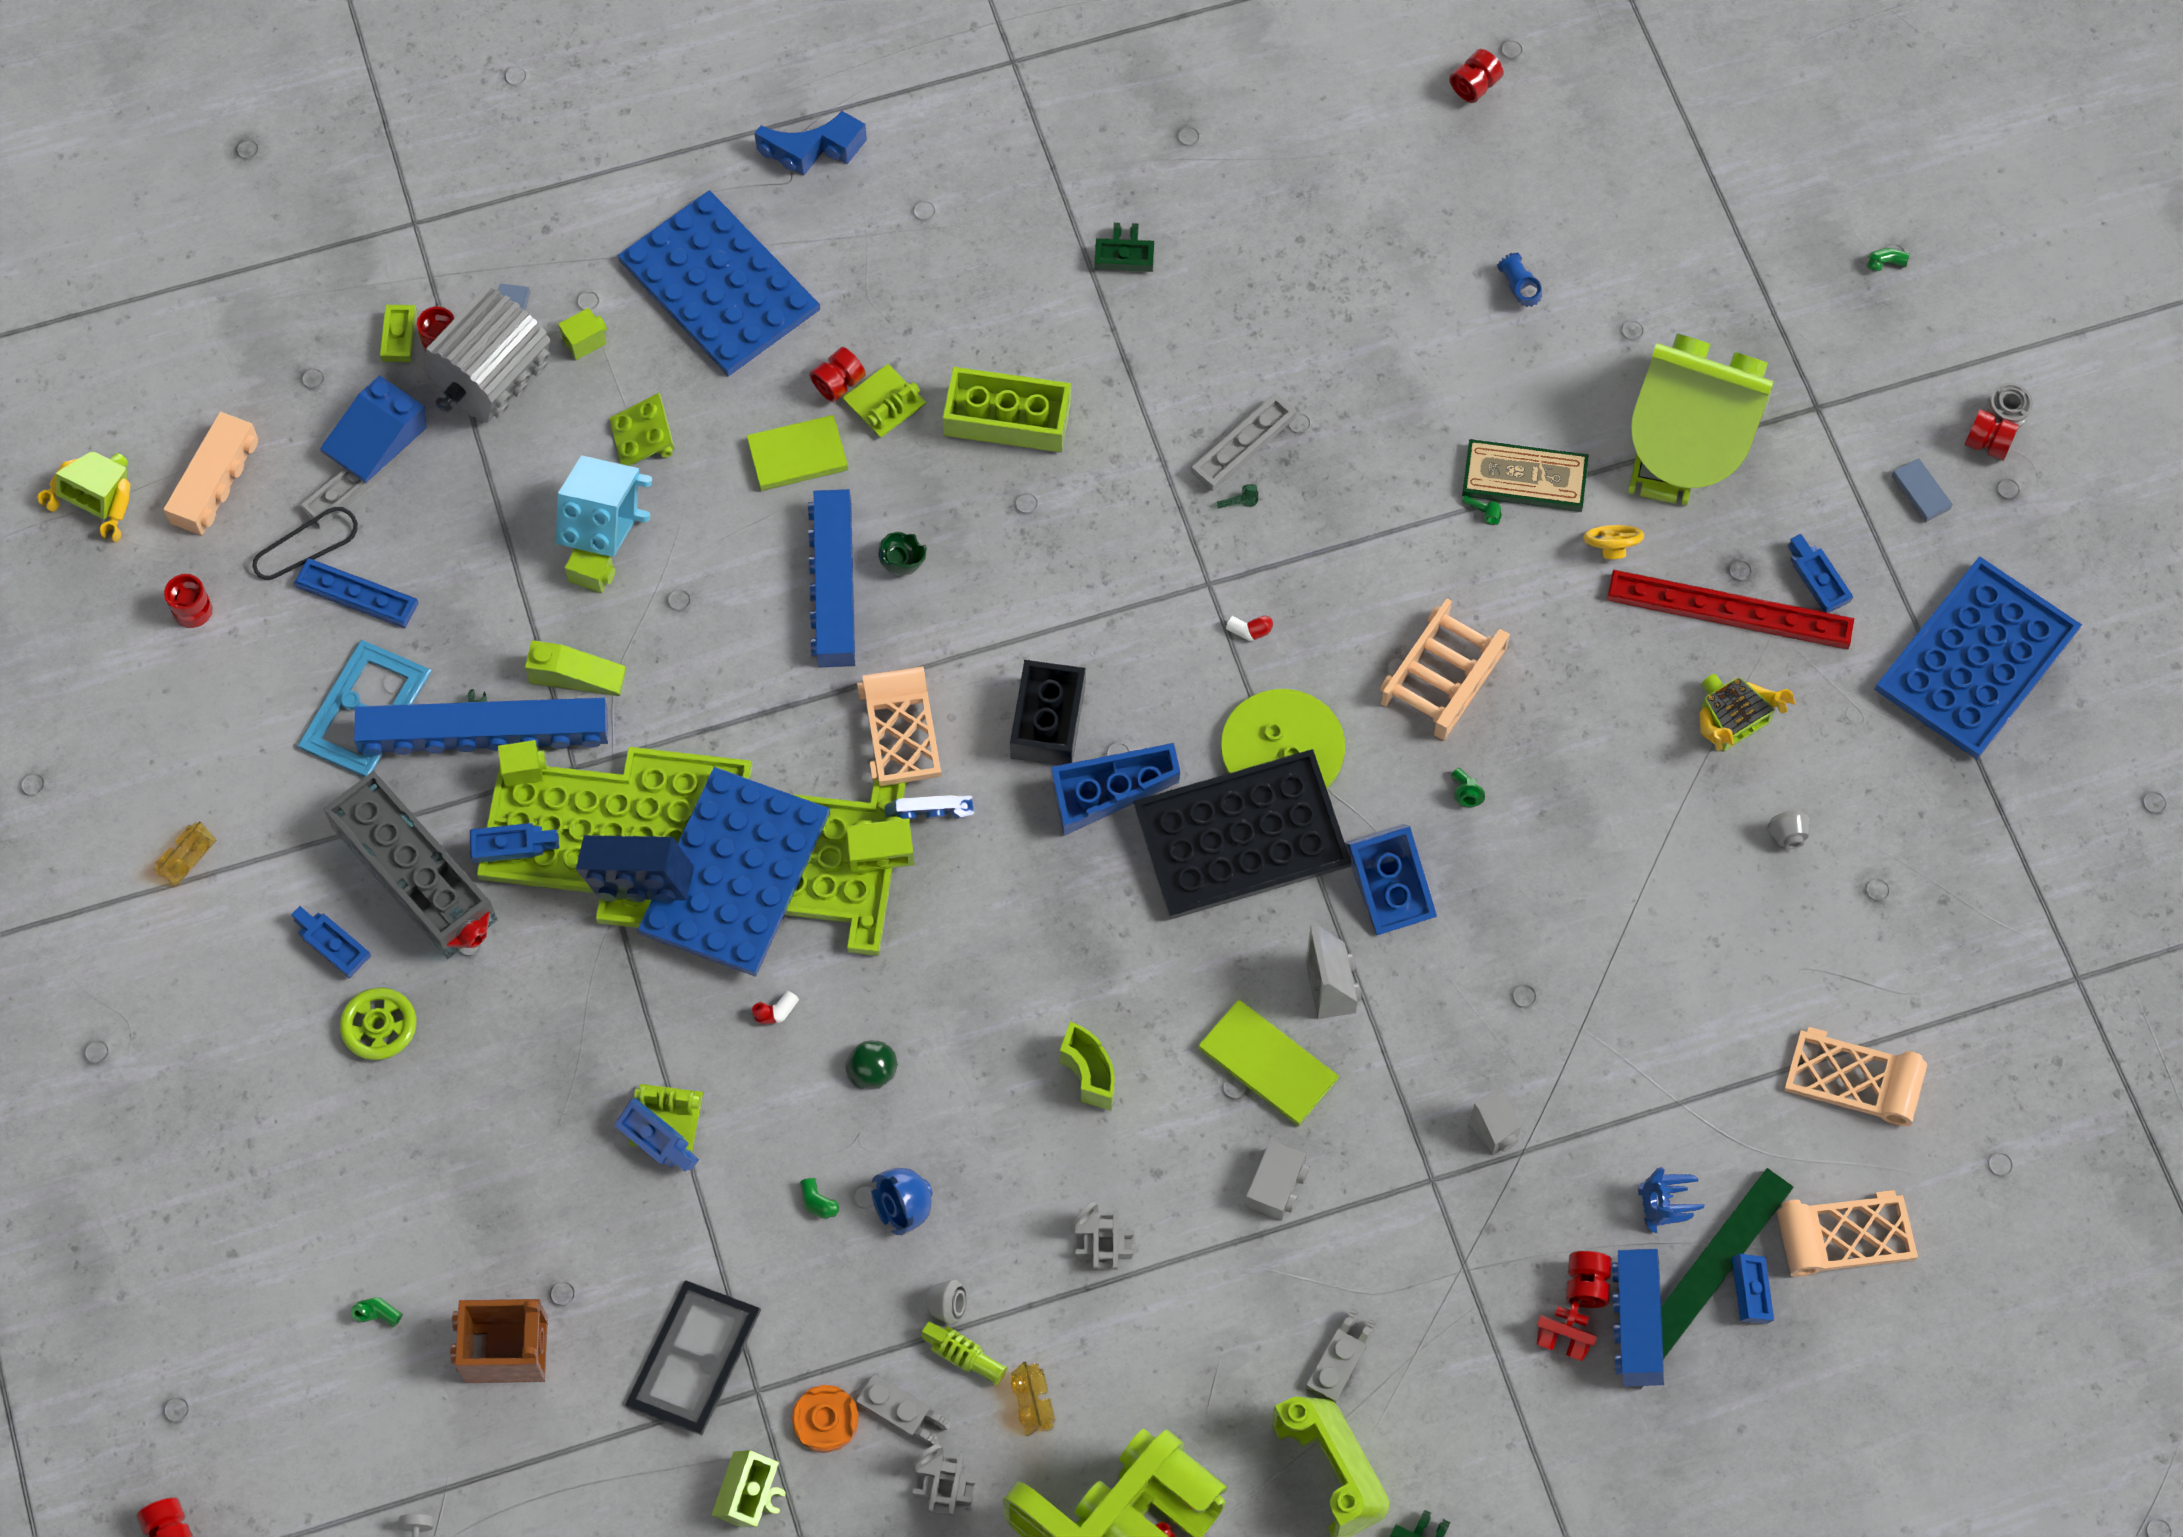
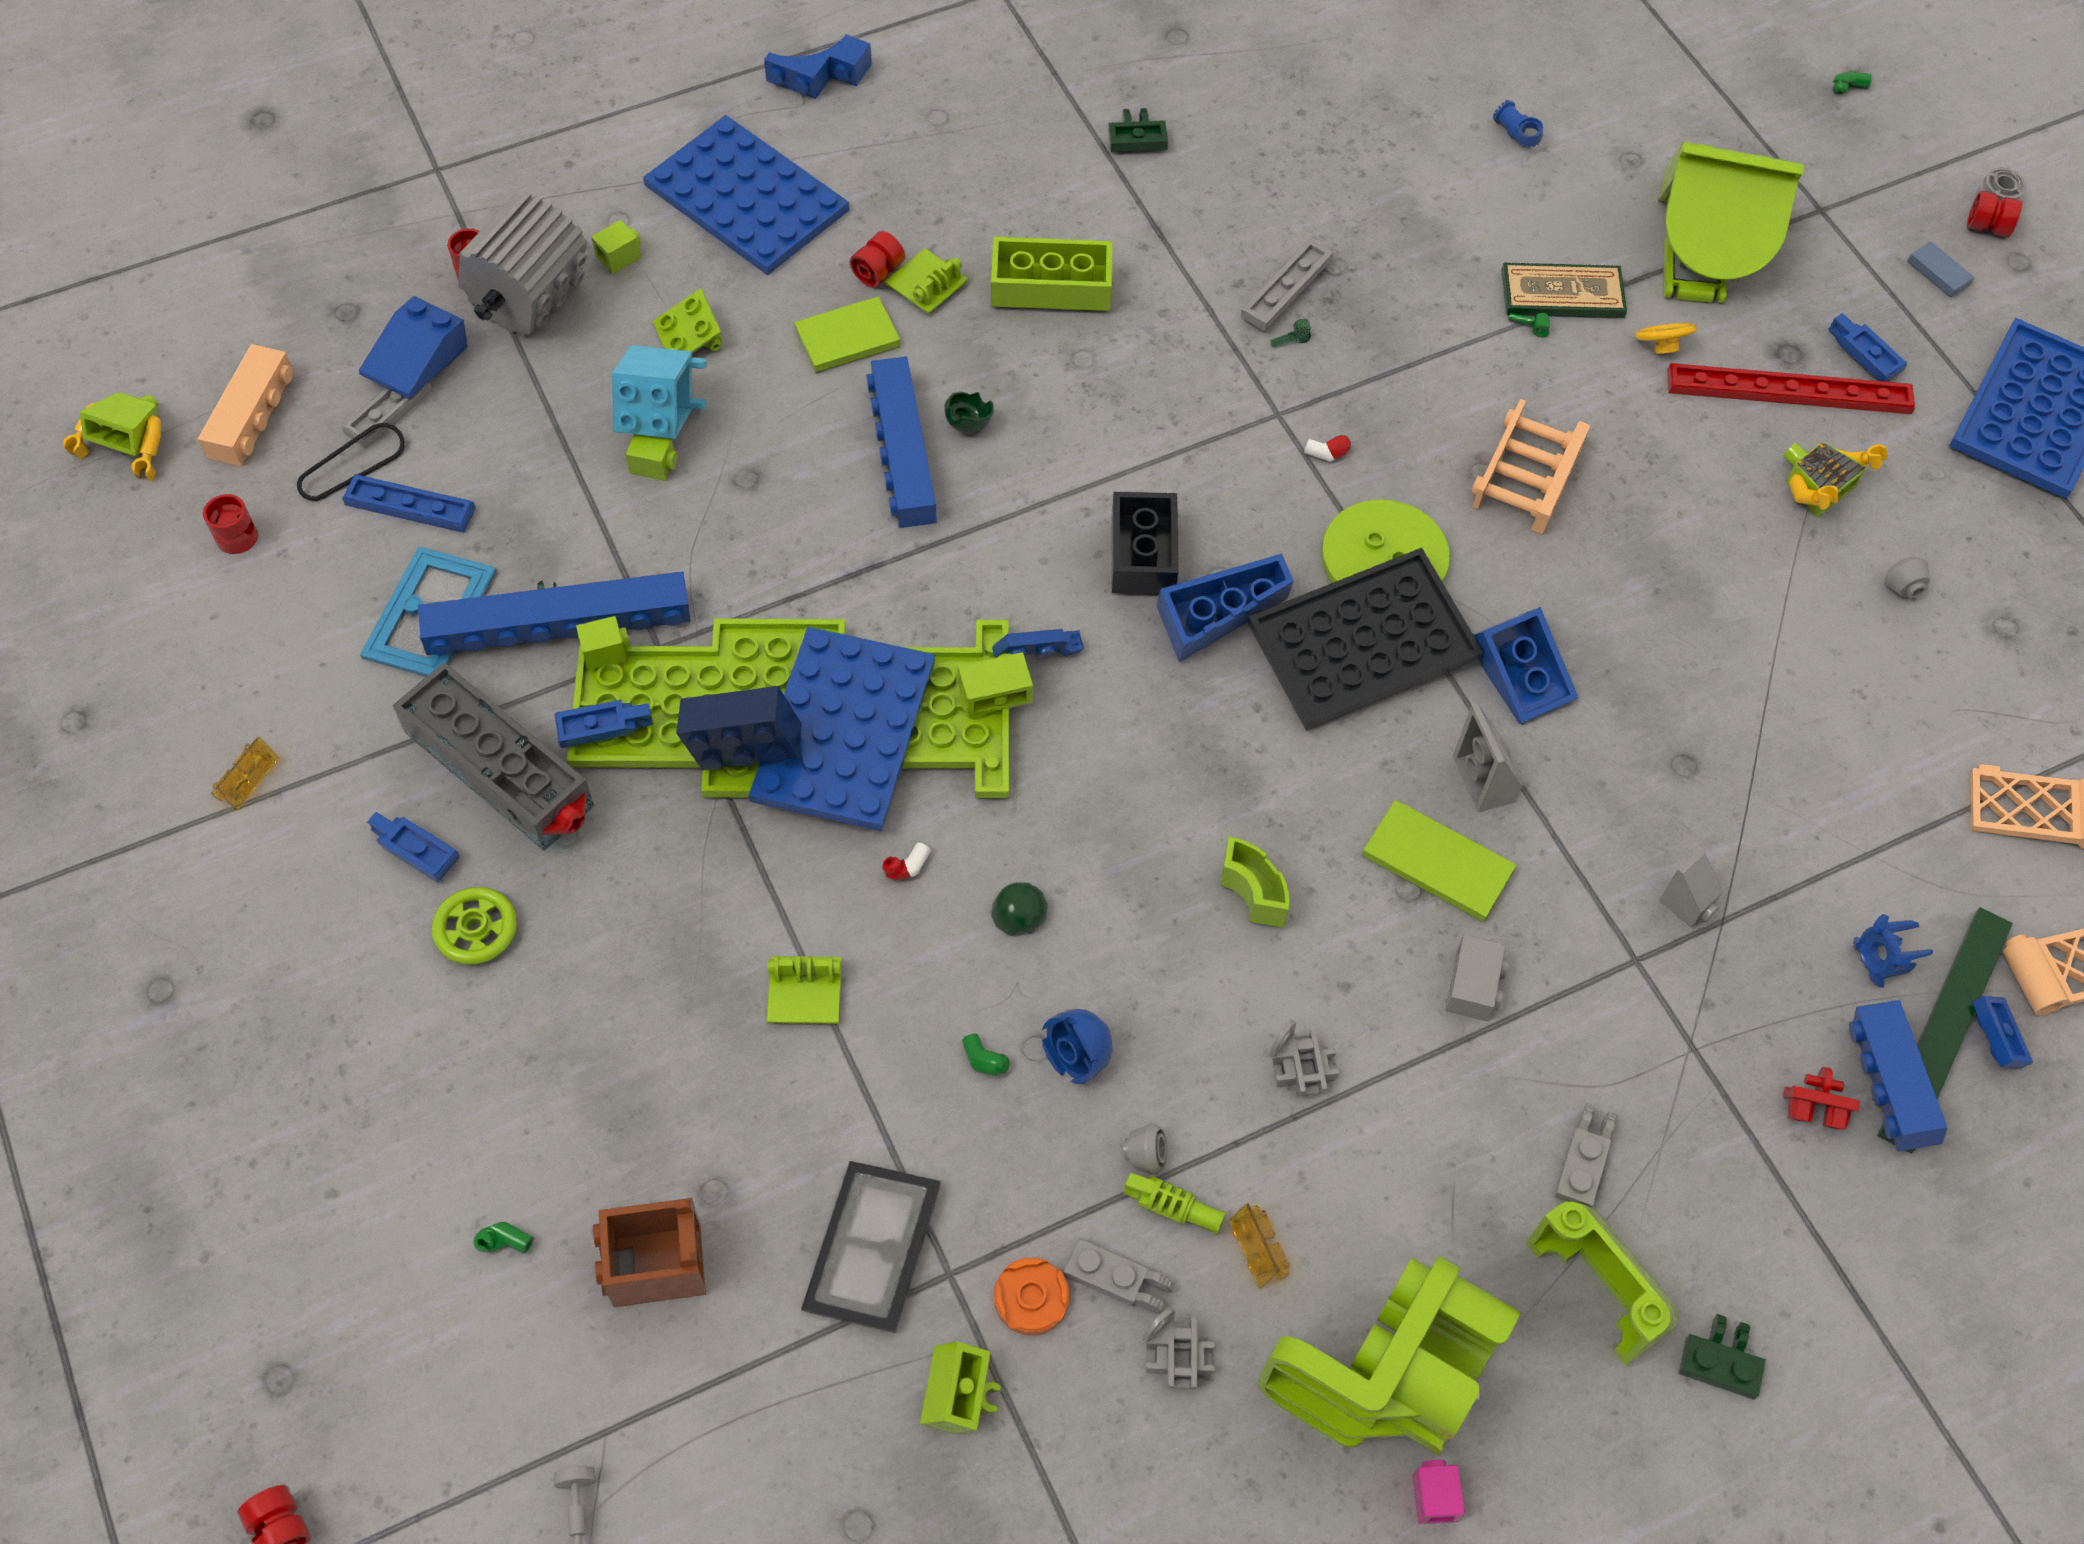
camera: 10 degrees left, 5 degrees down
(398, 333) = (429, 263): lime plate -> none
(572, 669) = (640, 550): lime slope -> none
(655, 1136) = (796, 1008): blue hinge -> none
(890, 691) = (984, 540): light nougat piece -> none
(1467, 793) = (1582, 575): green plate -> none
(1588, 1274) = (1831, 1041): red wheel -> none

